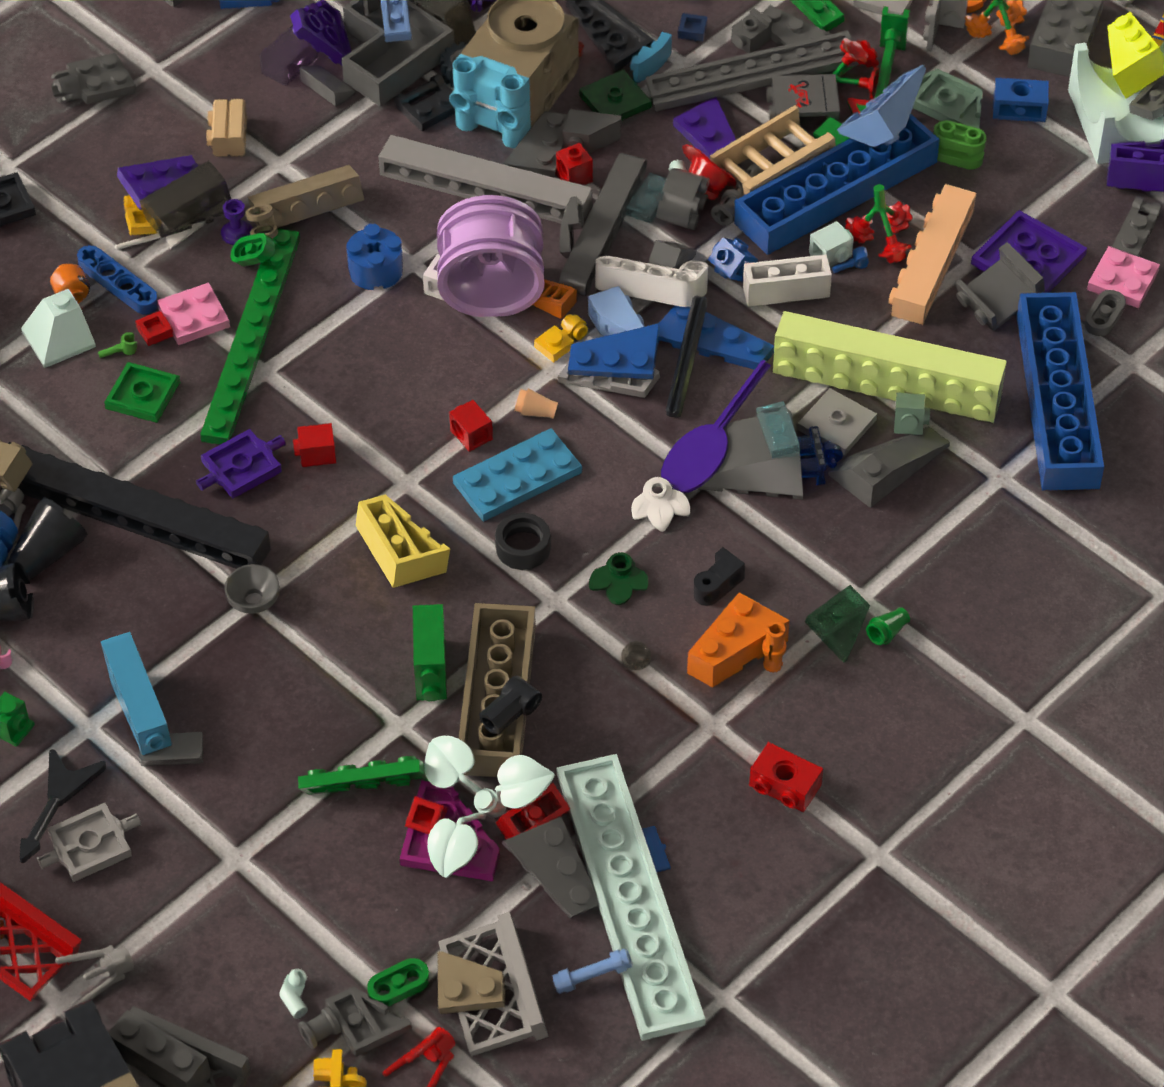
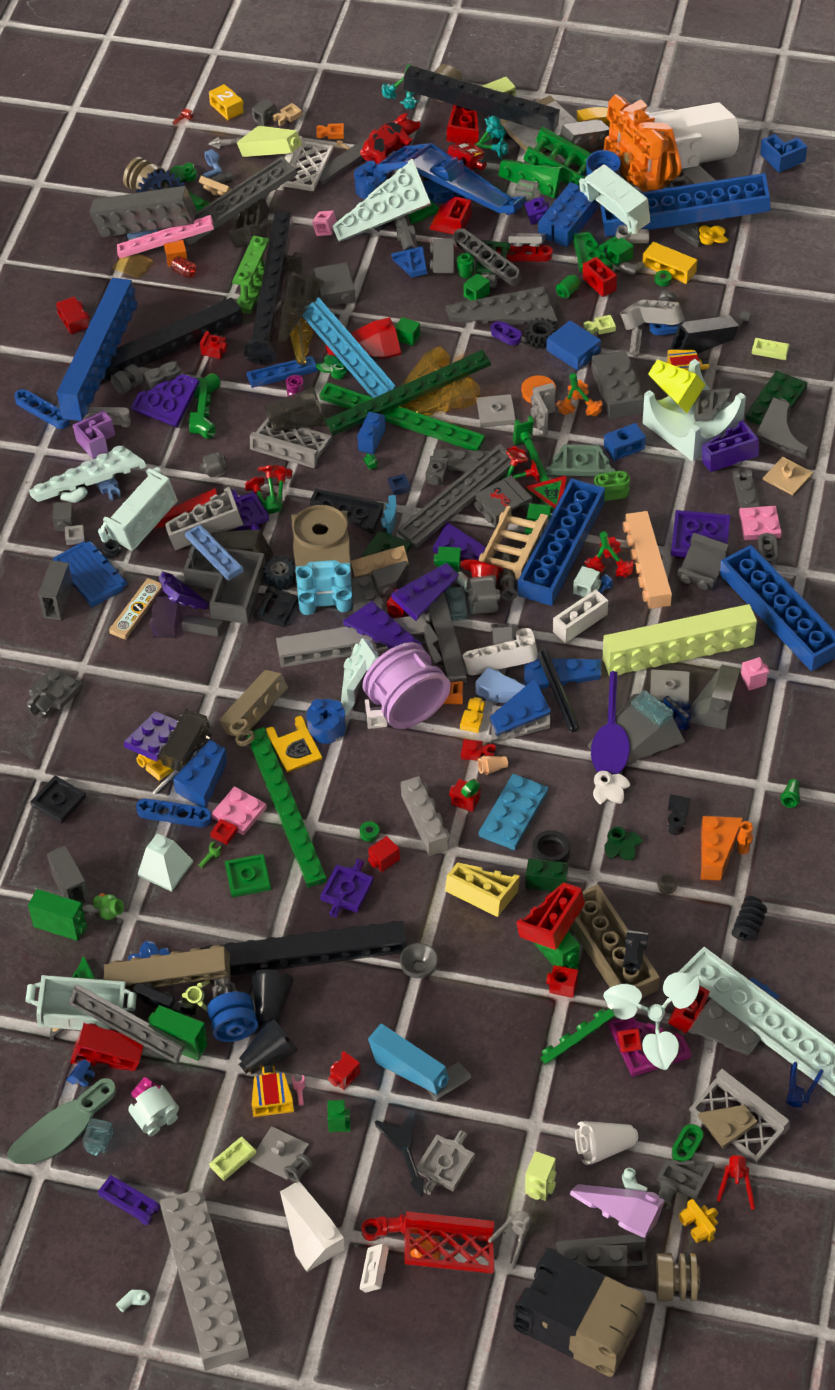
camera: 30 degrees left, 0 degrees up
(60, 672) = (344, 1071): none -> red brick
(70, 277) = (146, 828): orange head -> none
(179, 918) = (540, 1176): none -> yellowish green brick
(181, 249) = (201, 774): none -> blue wedge
(228, 127) = (166, 682): tan brick -> none
(235, 228) = (220, 734): dark purple piece -> none
(253, 249) = (249, 750): green plate -> none
(254, 1018) = (633, 1209): none -> lavender wedge
(255, 35) = (136, 609): none -> tile
(297, 919) = (603, 1140): none -> white cone
(317, 274) = (295, 748): none -> yellow flag
(324, 411) = (369, 831): none -> green tile
(400, 424) = (424, 815): none -> light grey brick
(408, 714) = (565, 988): none -> red brick
(430, 611) = (552, 918): none -> red wedge
(471, 190) = (354, 669): none -> light aqua wing
(472, 415) = (470, 788): none -> green tile
(490, 568) = (545, 874): none -> dark green brick
(522, 177) = (379, 626): none -> dark purple wing
(530, 376) = (474, 749): none -> red plate
(584, 997) = (796, 1094): none -> clear blue plant
(592, 102) = (365, 565): none -> tan plate
(607, 159) = (422, 592): none -> dark purple wing
(618, 961) = (777, 1091): medium blue bar -> none
(673, 136) = (448, 555): none -> green brick
(701, 749) = (749, 919): none -> black piece
(730, 258) = (544, 618): blue brick -> none
(778, 763) = (812, 903): red brick -> none
(840, 621) = (763, 804): clear green wing -> none
(886, 113) = (566, 485): medium blue wedge -> none
(910, 414) = (710, 662): sand green brick -> none
(959, 455) = (754, 673): none -> bright pink brick

